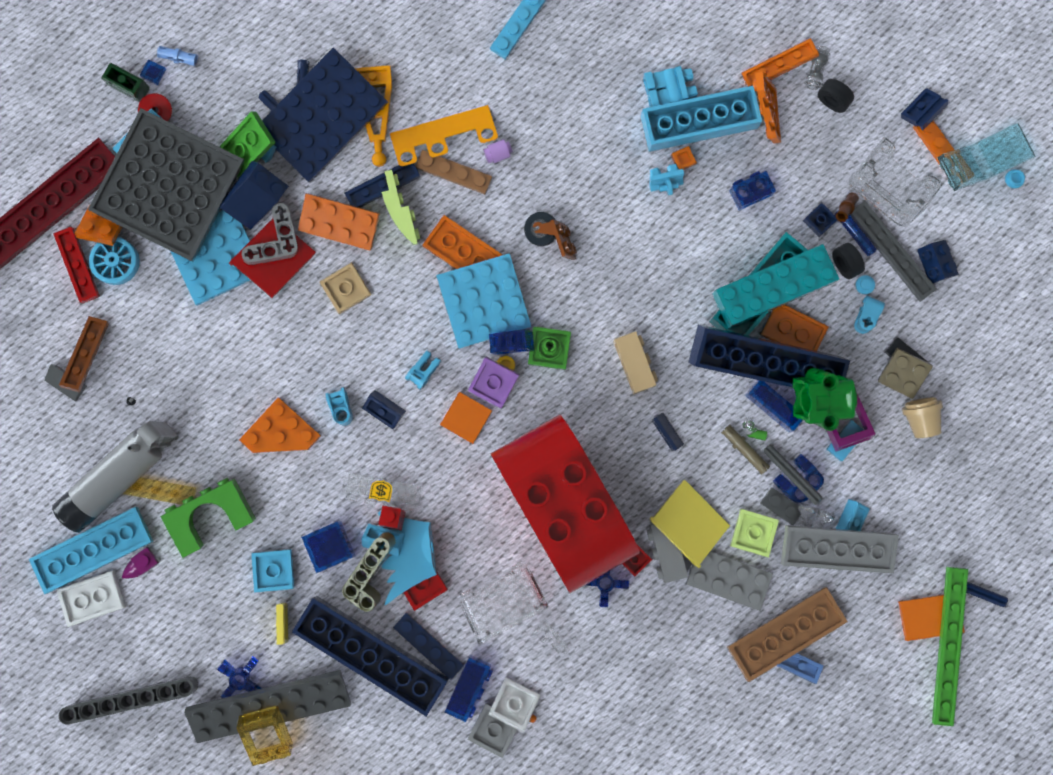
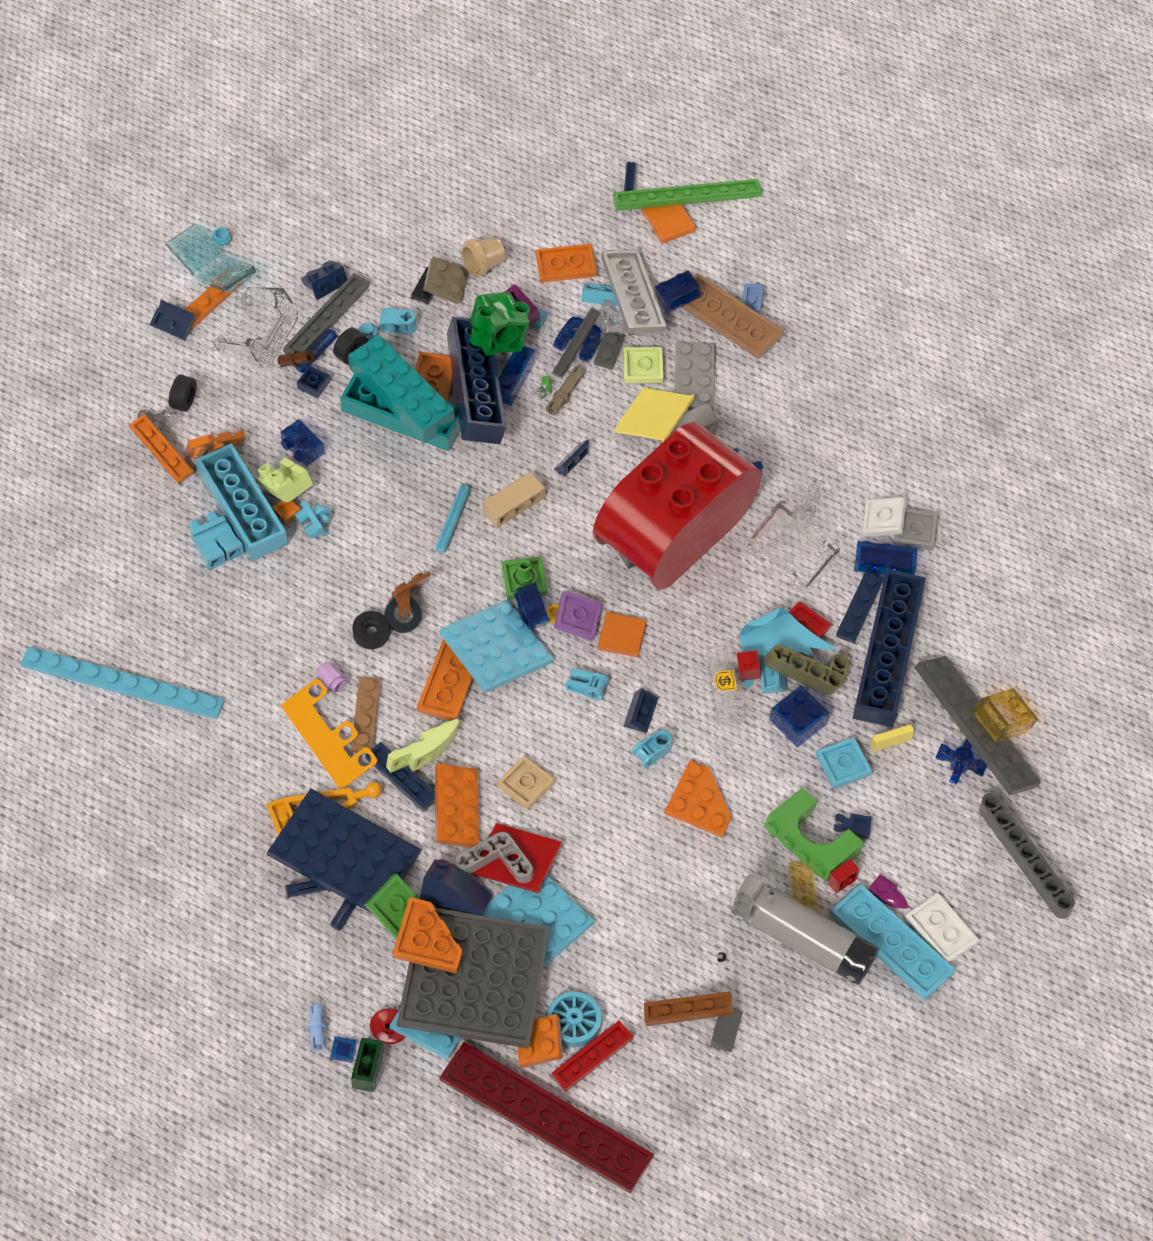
camera: 110 degrees left, 25 degrees down
(159, 530) = (843, 876): none -> red piece
(205, 151) = (426, 938): none -> orange plate
(208, 560) = (858, 824): none -> dark blue plate
(530, 189) = (366, 620): none -> black tyre
(633, 304) = (453, 518): none -> medium azure axle
(711, 161) = (286, 481): none -> yellowish green hips
(822, 594) = (677, 291): none -> clear blue brick
(898, 498) = (565, 263): none -> orange tile

